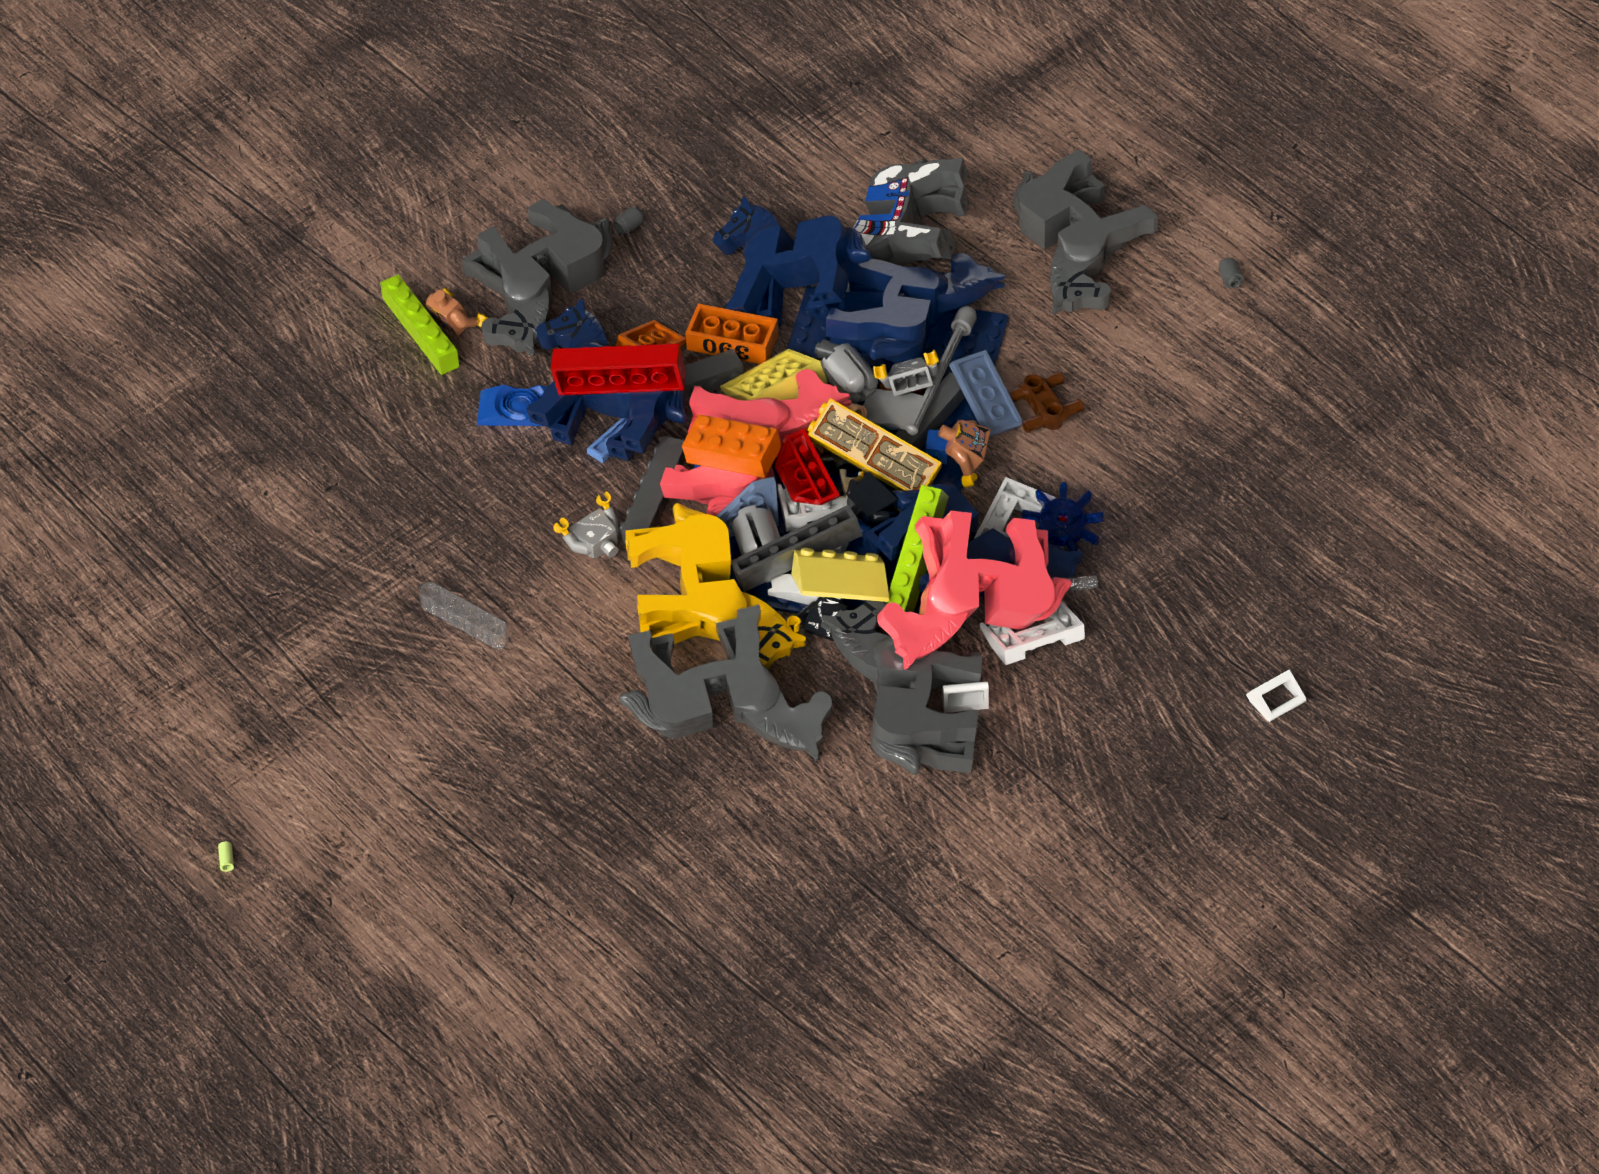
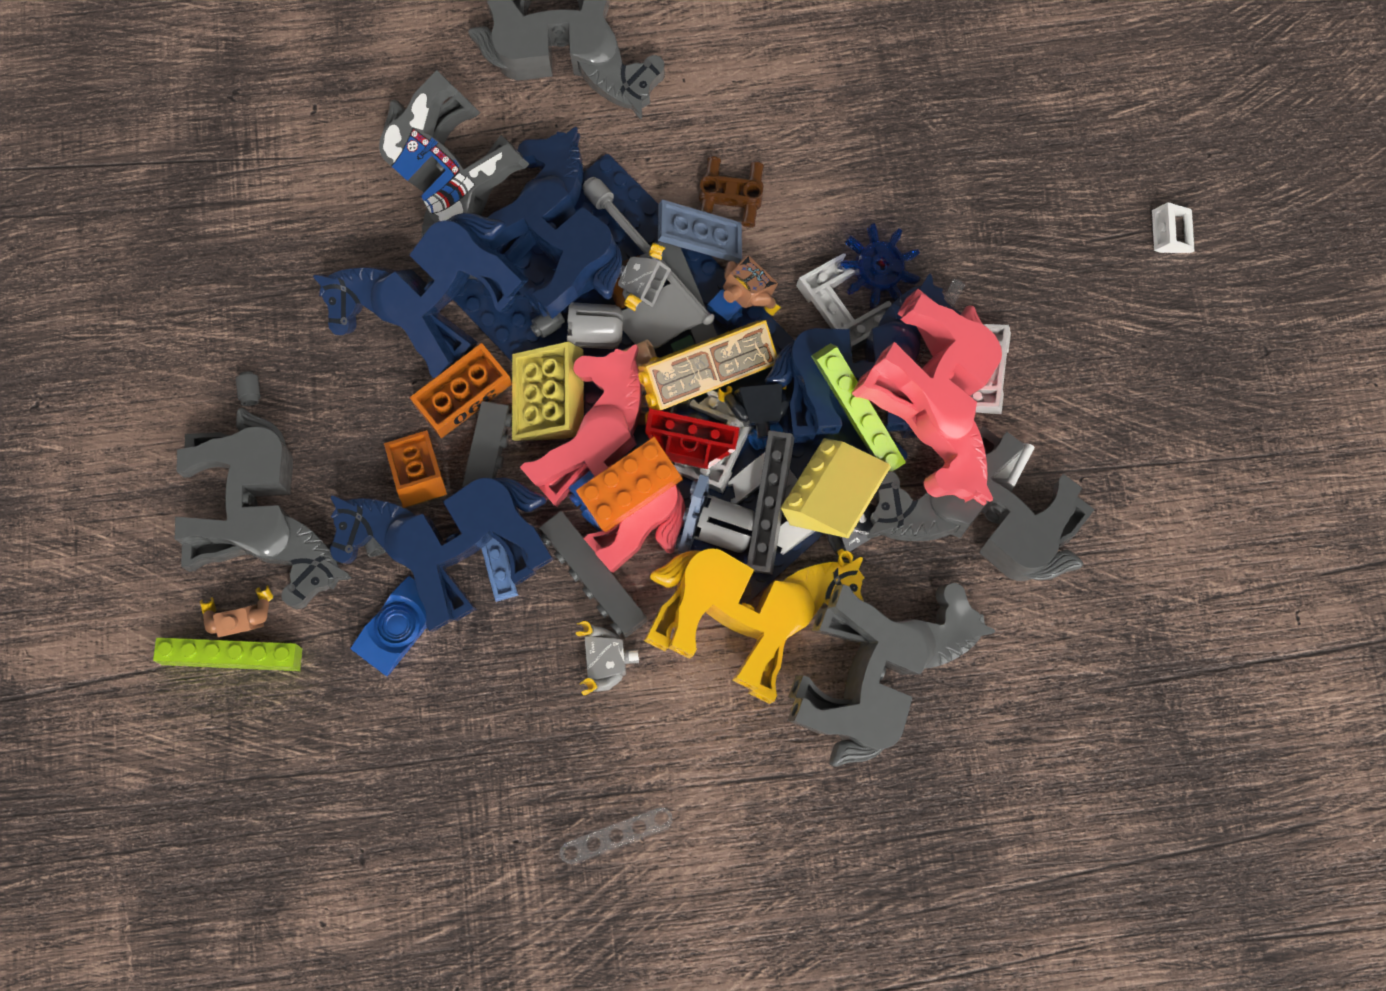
camera: 55 degrees left, 25 degrees up
(618, 369) = (466, 525): red brick -> none

